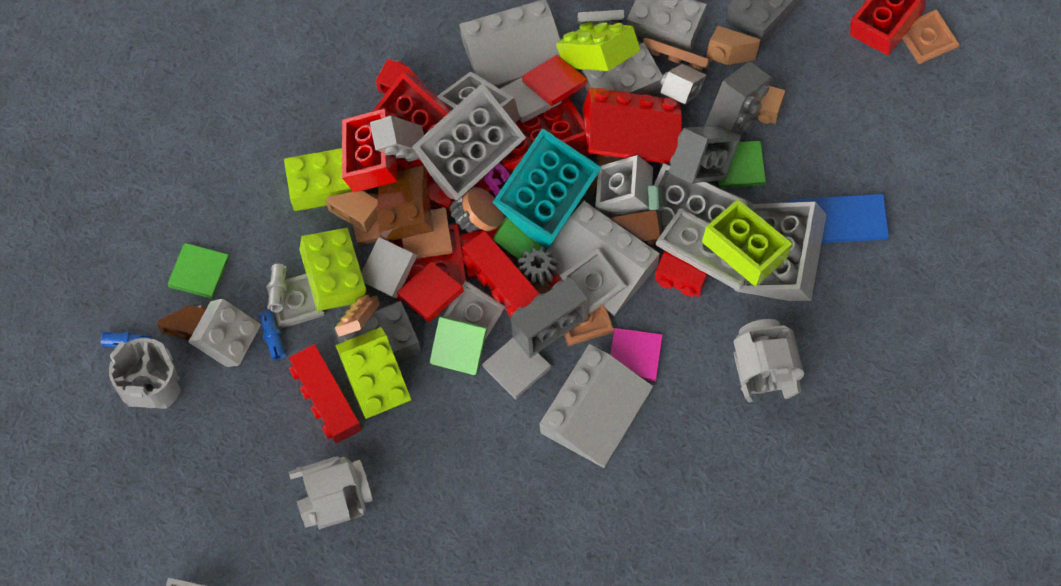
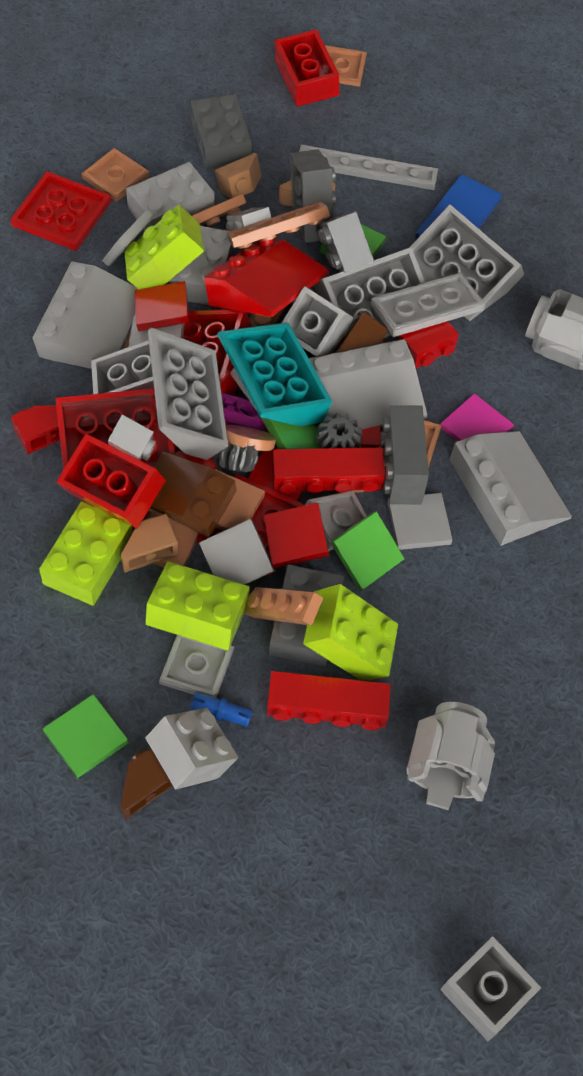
camera: 65 degrees left, 5 degrees down
(111, 339) = (109, 860): blue pin -> none
(144, 363) = (184, 837): light grey piece -> none
(277, 287) = (176, 668): light grey pin -> none
(595, 279) = (380, 394): light grey tile -> none
(655, 198) = (349, 306): sand green tile -> none
(681, 100) = (285, 222): none -> nougat plate
(746, 242) = (455, 267): lime brick -> none
(831, 125) = (379, 168): none -> light grey tile

